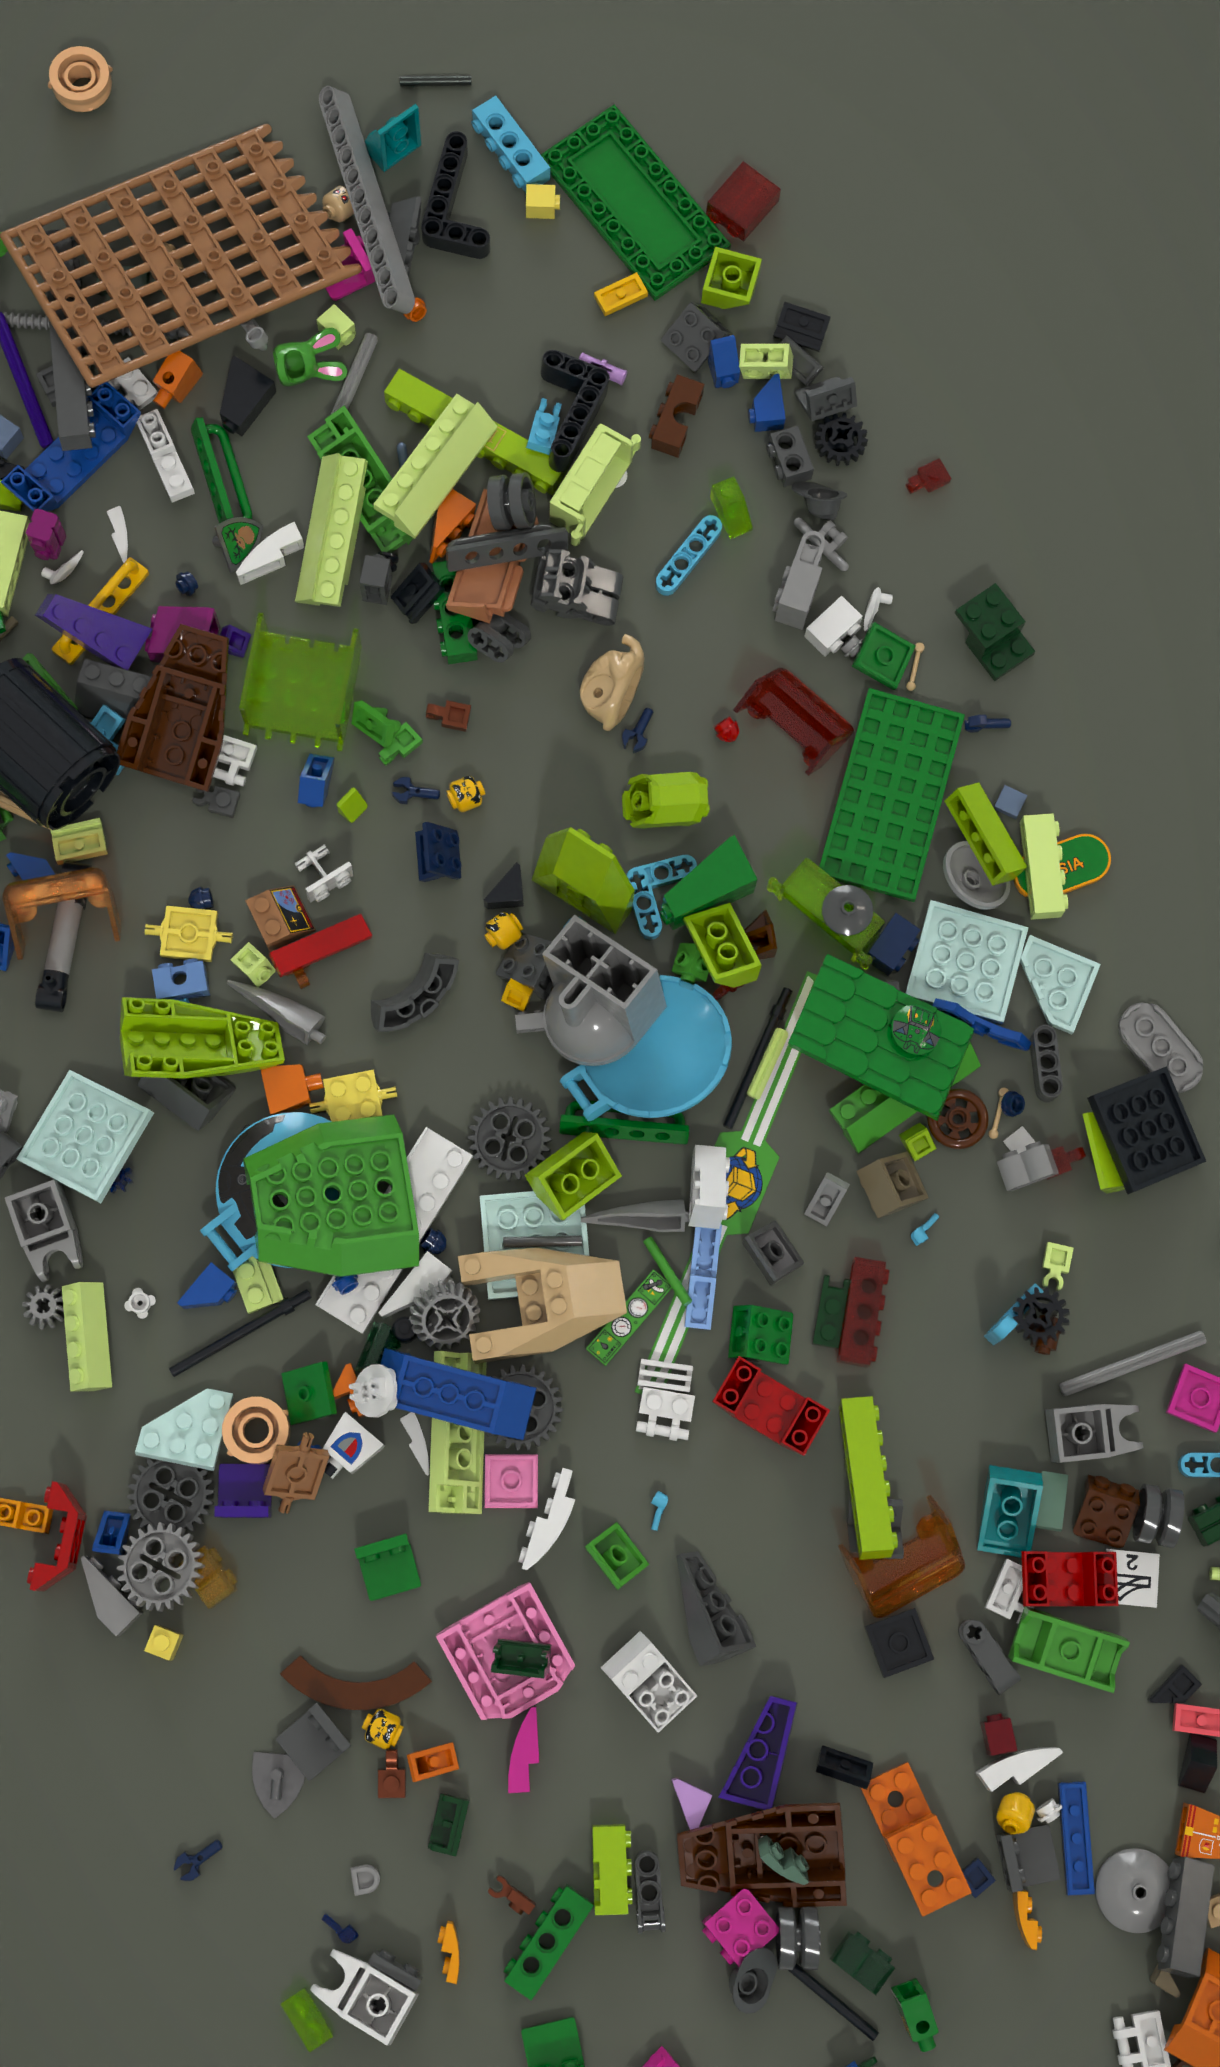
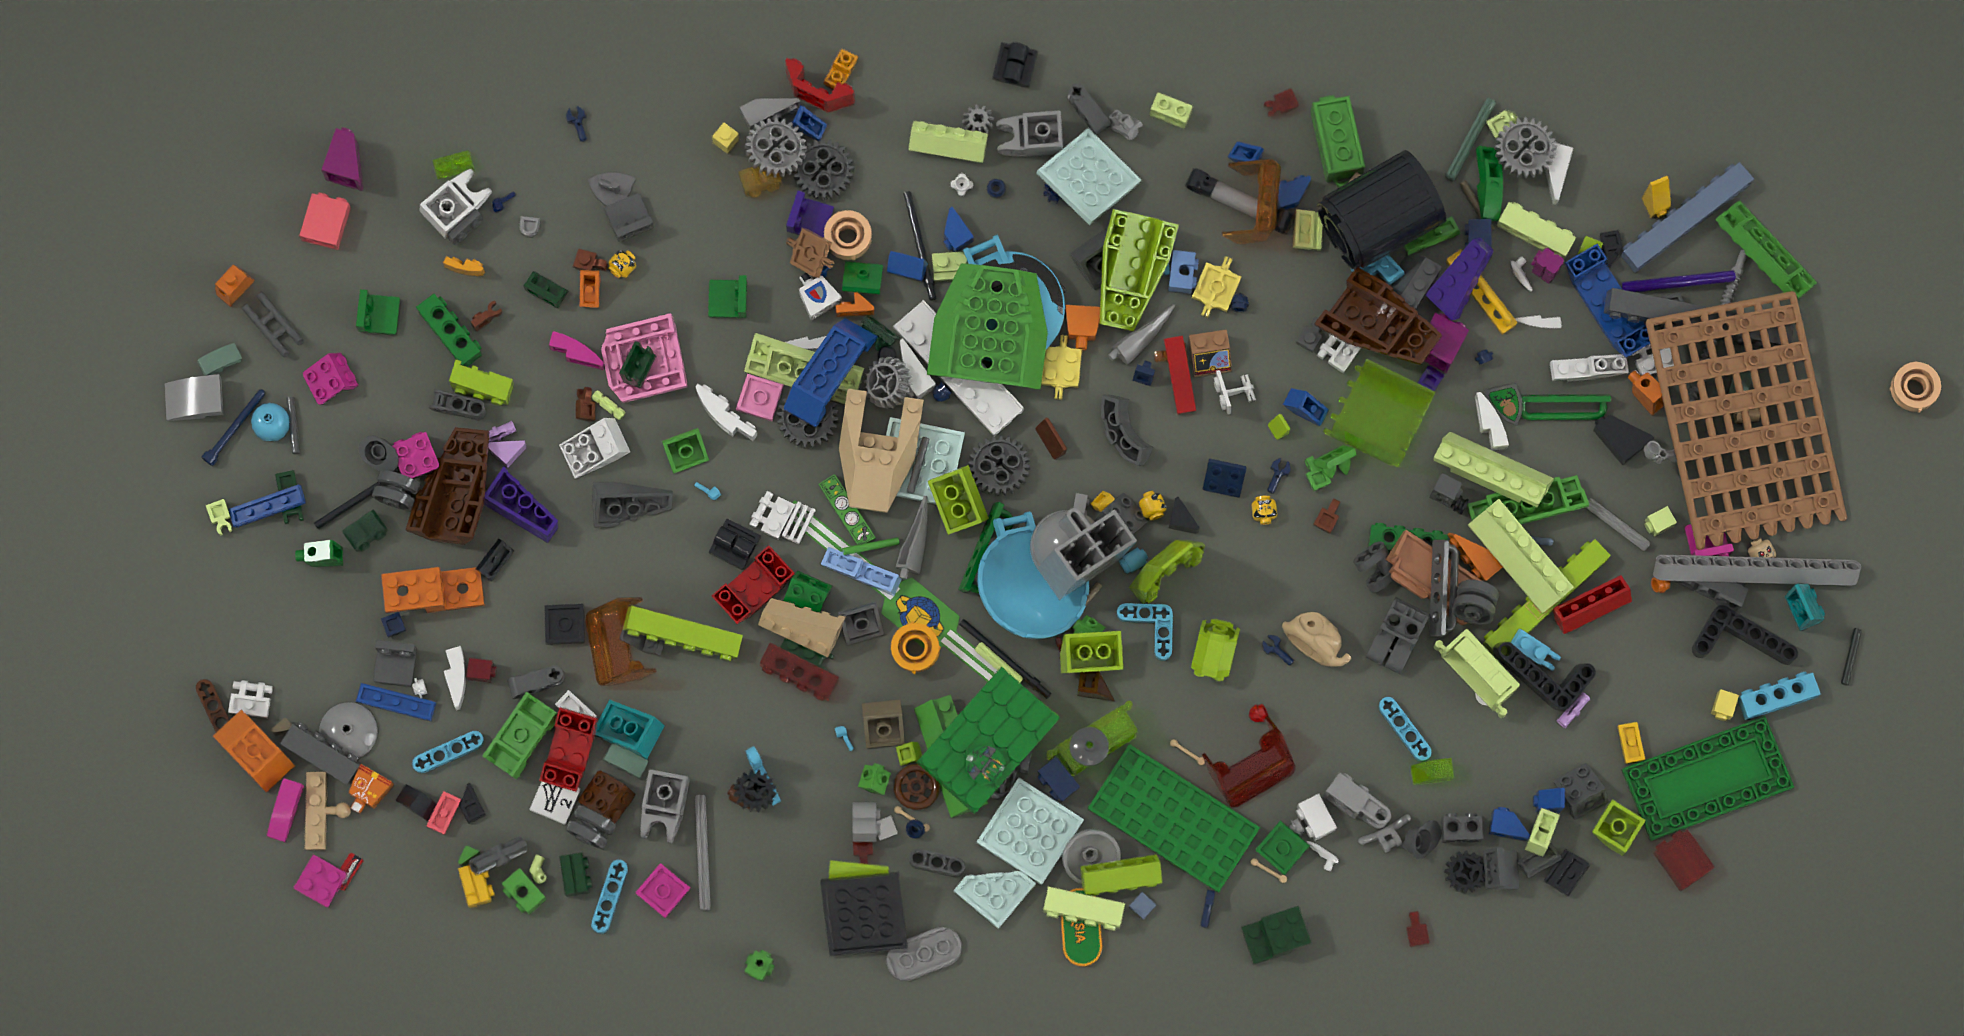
camera: 110 degrees right, 0 degrees up
(27, 629) = (1479, 228): none -> dark blue brick
(126, 1250) = (996, 182): none -> dark blue plate
(188, 1432) = (862, 191): light aqua plate -> none
(253, 964) = (1180, 324): yellowish green bracket -> none
(275, 1340) = (906, 265): none -> blue slope
(297, 360) = (1637, 483): bright green piece -> none
(331, 991) = (1144, 373): none -> dark blue tile
(345, 1284) = (928, 322): blue plate -> none
(355, 1694) = (651, 251): reddish brown tile -> none
(371, 1382) = (848, 317): white plate -> none
(417, 593) = (1428, 518): black plate -> none
(453, 1084) = (1051, 439): none -> copper slope
(464, 373) = (1592, 604): none -> red brick
(583, 1683) = (608, 405): none -> yellowish green axle
(598, 1713) = (584, 406): none -> copper plate
(665, 1819) = (501, 431): none -> lavender pin
(685, 397) = (1533, 760): reddish brown arch -> none
(708, 1187) = (920, 589): white wedge -> none
(714, 882) = (1141, 661): green slope -> none
(720, 1450) = (734, 544): none -> black plate
(785, 1862) = (445, 496): sand green slope -> none
(803, 1161) = (906, 634): none -> light orange piece
(803, 1325) = (802, 625): none -> tan wedge
(807, 784) = (1174, 743): none -> tan hinge
(826, 1199) = (886, 673): light grey slope -> none
(968, 1172) = (874, 779): none -> bright green brick
(981, 1026) = (983, 818): blue tile -> none
(1015, 1813) = (426, 663): yellow head -> none
(1028, 1927) = (350, 647): light orange slope -> none
(1056, 1260) = (792, 822): yellowish green plate -> none
(1115, 1746) = (447, 749): none -> medium azure beam

